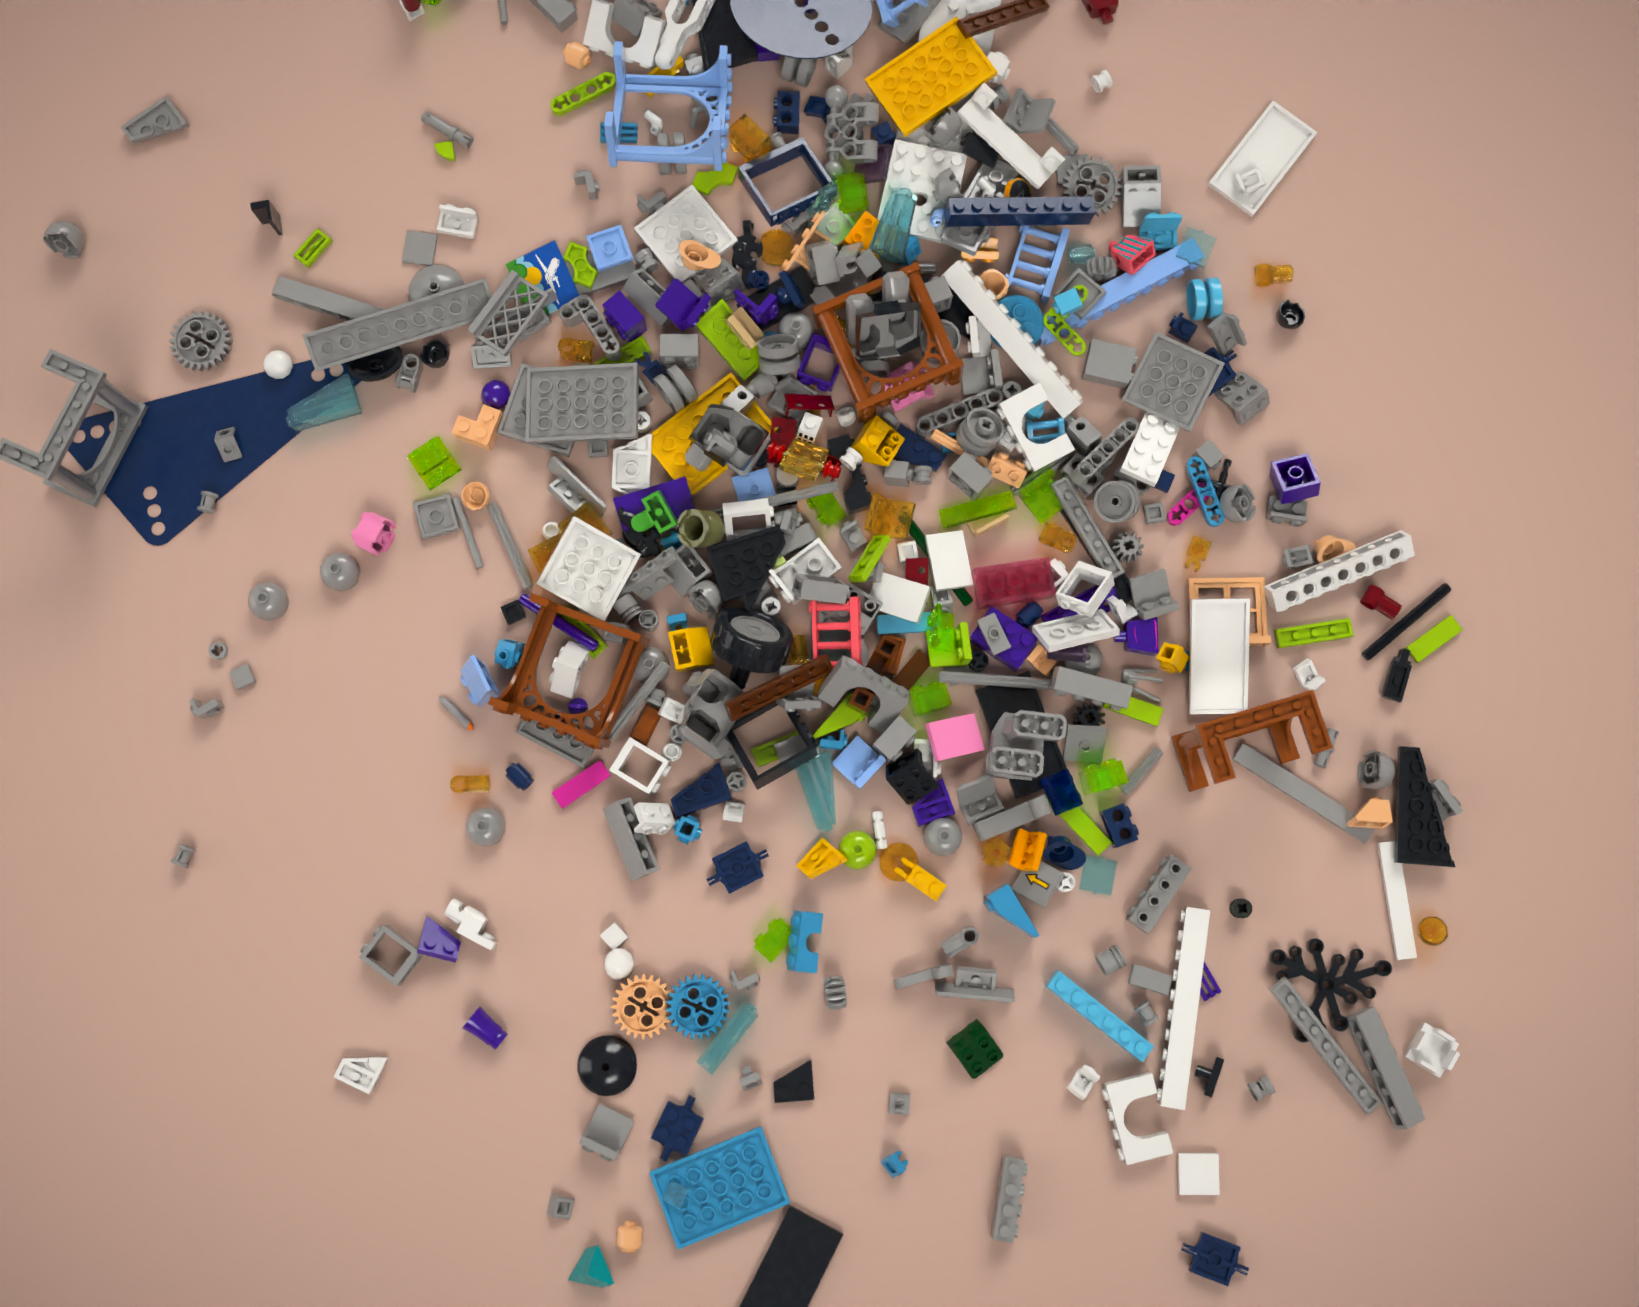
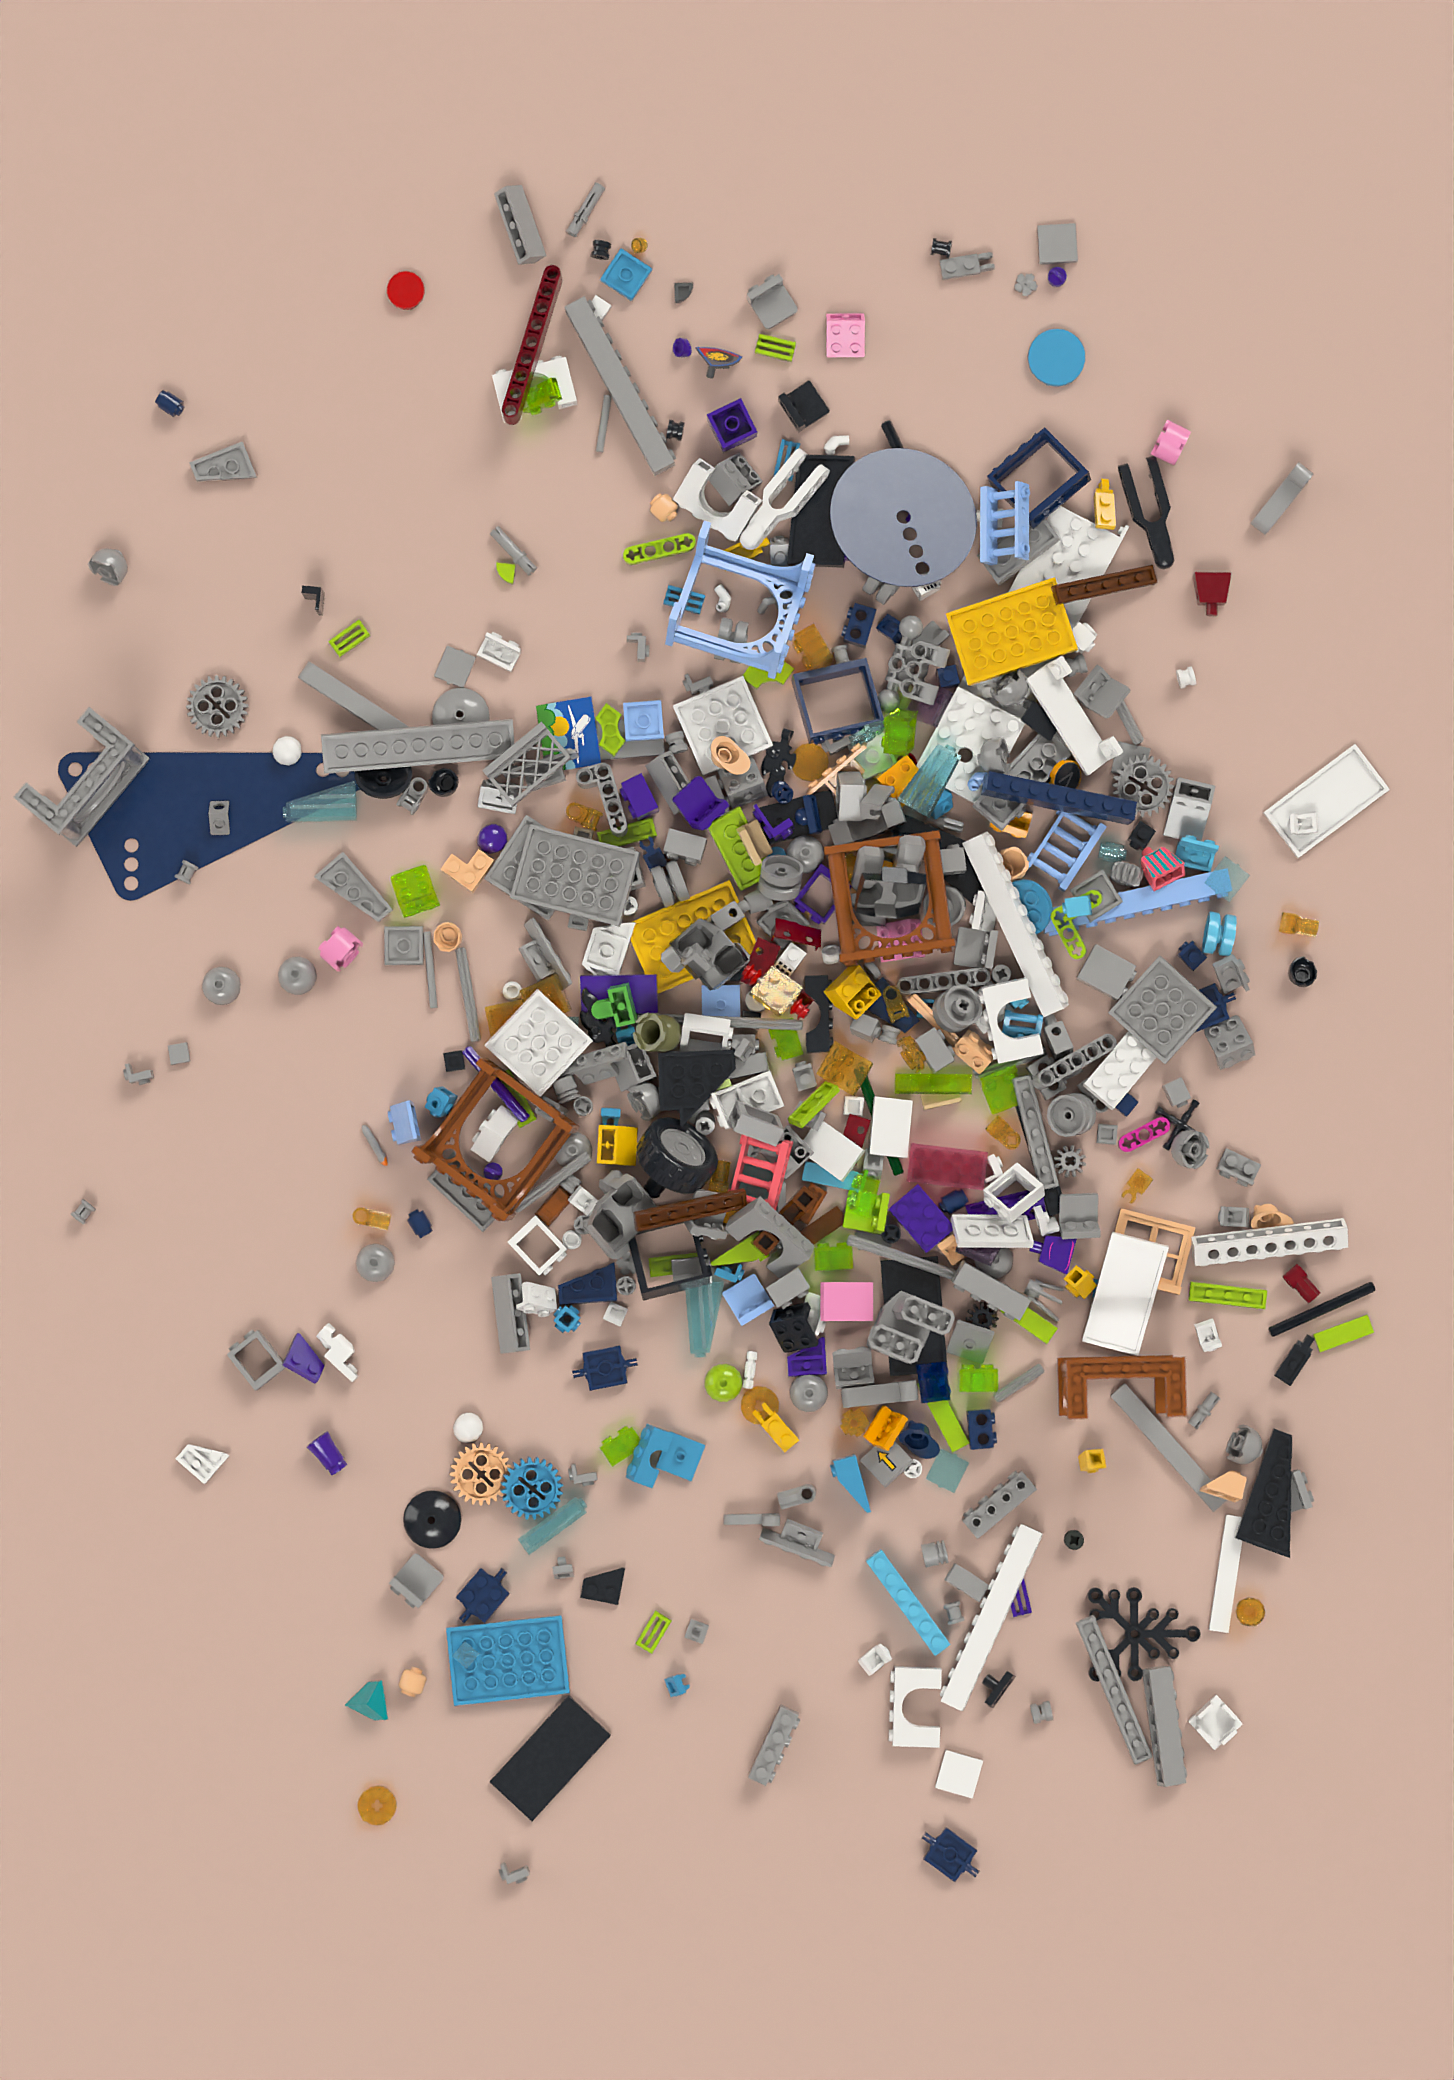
camera: 20 degrees right, 5 degrees up
(89, 79) = (170, 403): none -> dark blue brick
(213, 647) = (165, 1026): light grey bush -> none
(371, 472) = (350, 883): none -> light grey wing
(560, 1206) = (355, 1636): light grey slope -> none
(581, 784) = (476, 1247): dark pink tile -> none
(614, 936) = (470, 1400): white slope -> none
(820, 859) = (685, 1382): yellow wing -> none
(835, 992) = (664, 1511): light grey gear -> none
(836, 934) = (681, 1457): none -> dark azure plate
(851, 459) = (822, 1002): white wheel -> none
(864, 1119) = (661, 1618): none -> lime tile
(920, 444) = (895, 1005): none -> clear yellow piece
(949, 487) = (910, 1054): none -> clear yellow plate
(975, 1049) = (782, 1600): dark green bracket -> none
(988, 190) = (1035, 766): white arm -> none
(993, 634) = (911, 1213): light grey plate -> none
(1103, 233) = (1140, 836): none -> black bracket
(1206, 491) = (1165, 1127): dark azure beam -> none
(1236, 825) = (1092, 1460): none -> yellow brick
(1294, 478) = (1253, 1139): dark purple brick -> none

